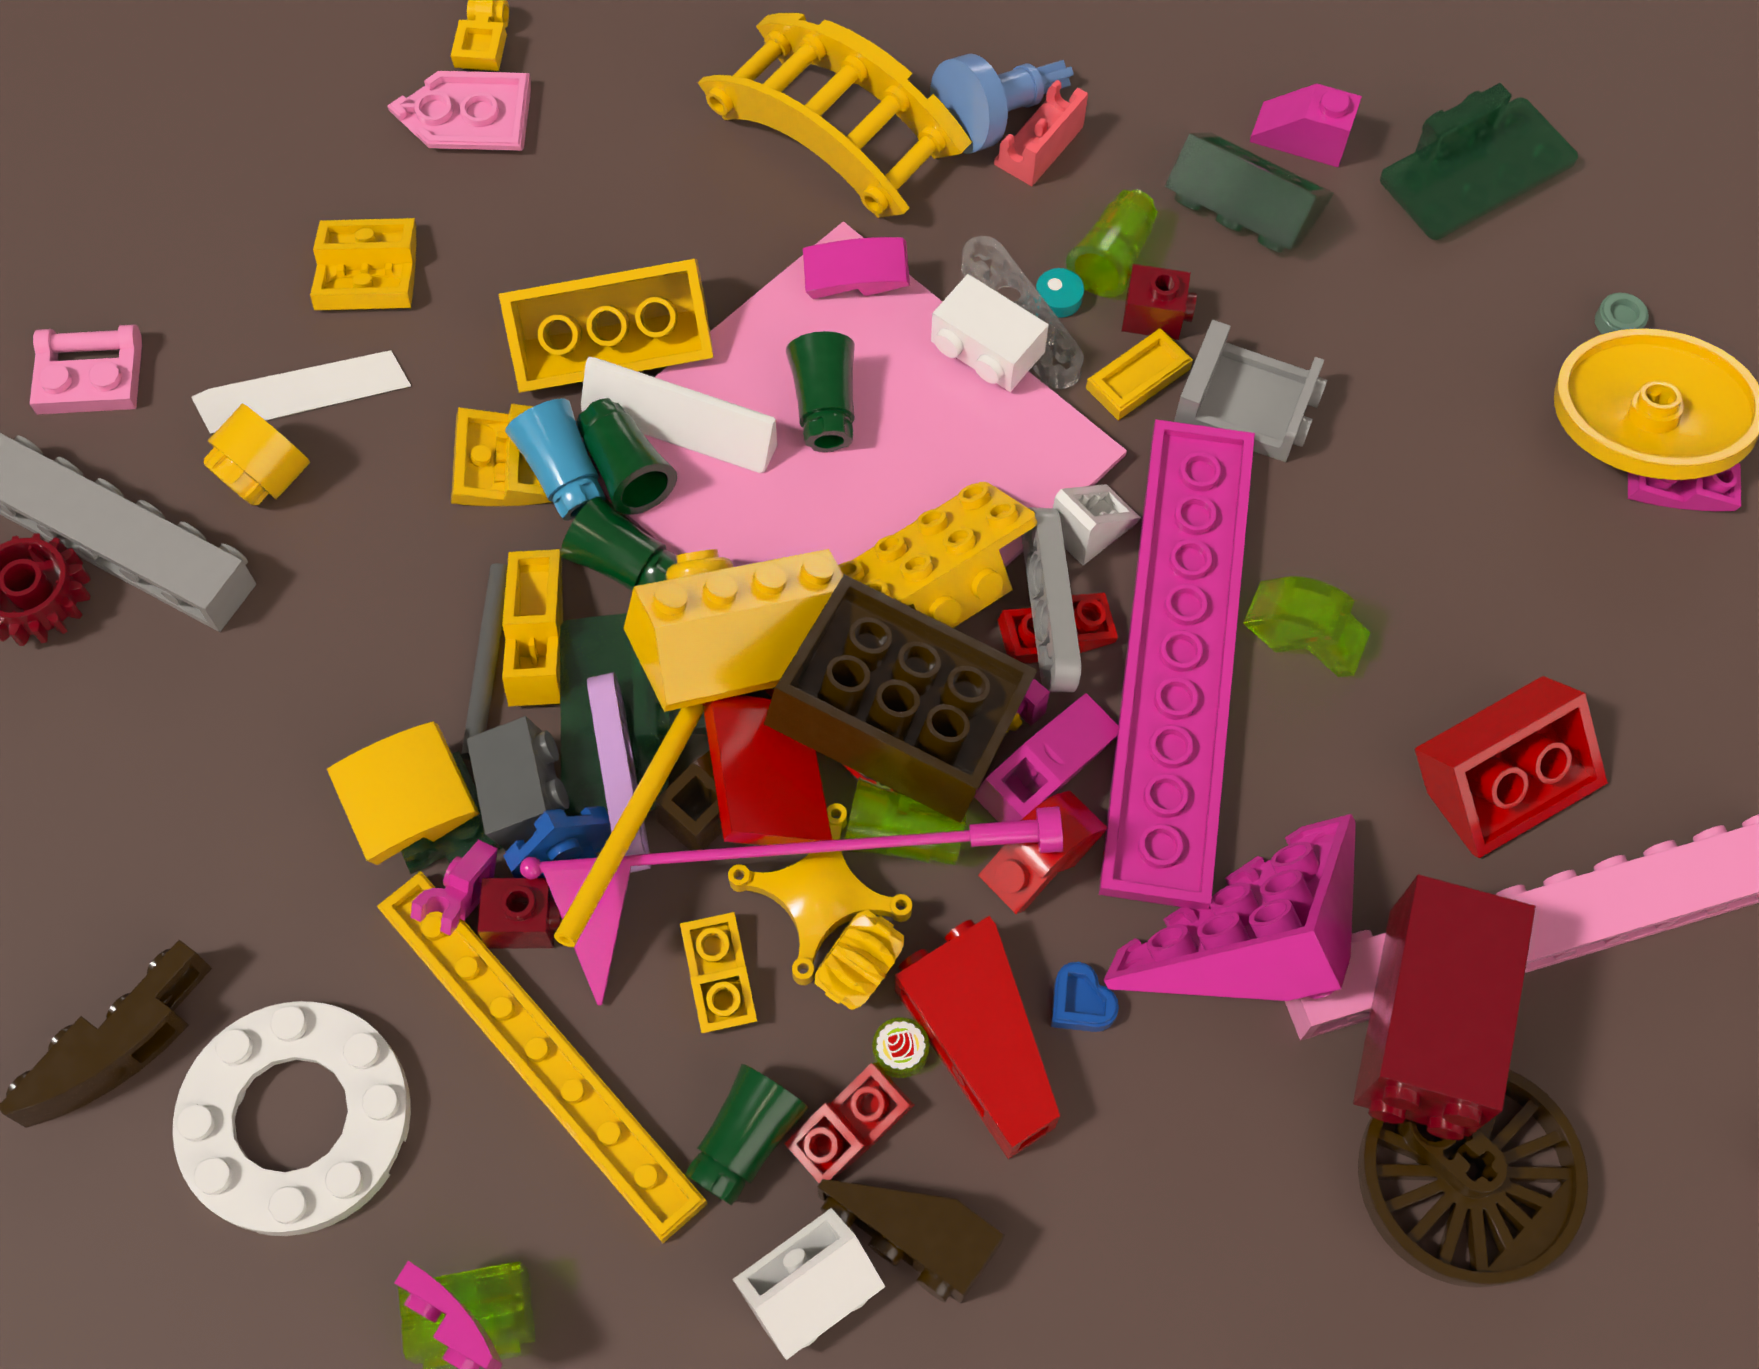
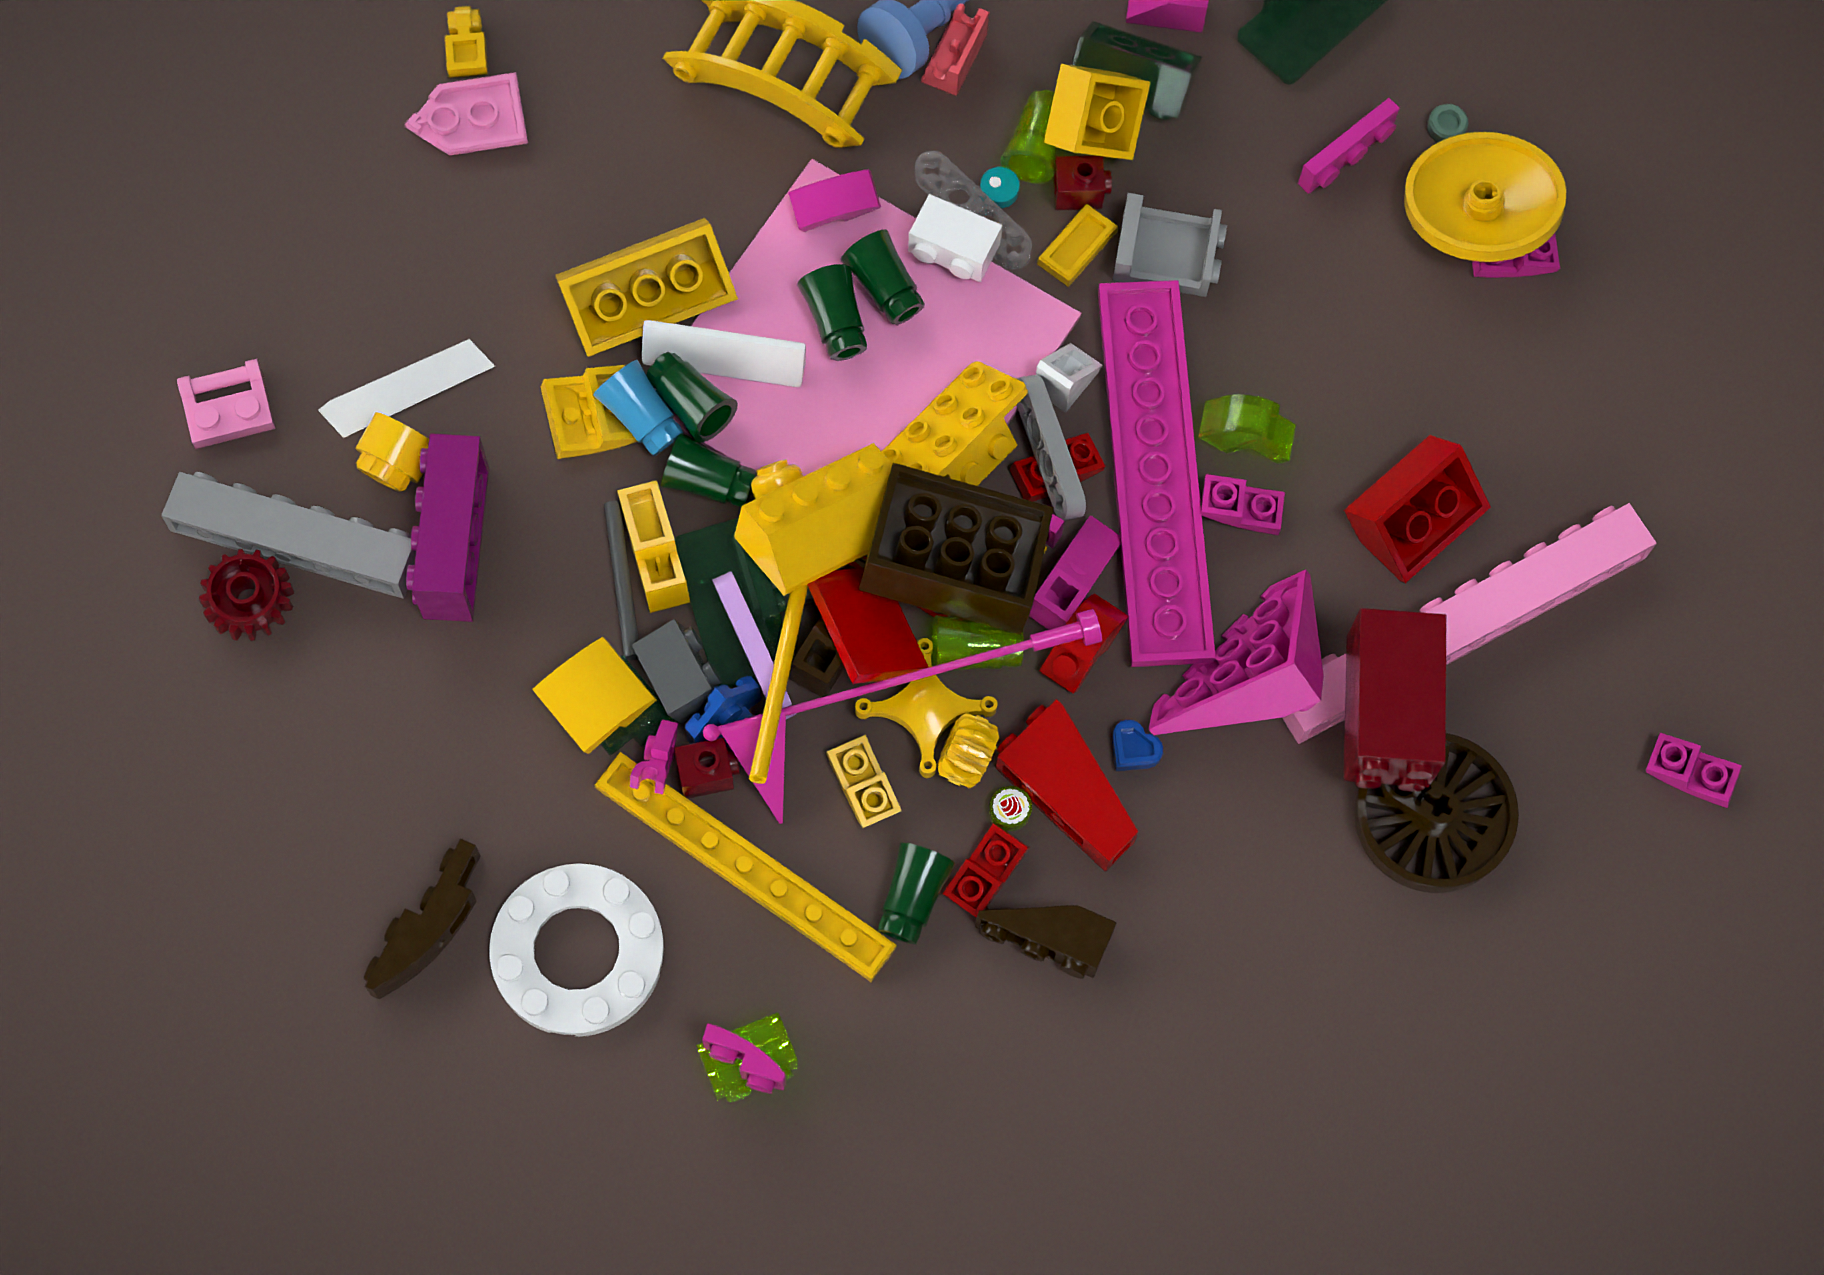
camera: 15 degrees left, 5 degrees up
(287, 555) = (449, 527): none -> magenta brick
(364, 264) = (427, 269): yellow slope -> none
(809, 1283) = (986, 984): white brick -> none
(893, 361) = (884, 276): none -> dark green plant
(1193, 217) = (1096, 112): none -> yellow brick
(1282, 720) = (1241, 506): none -> dark pink slope
(1495, 318) = (1349, 147): none -> dark pink plate

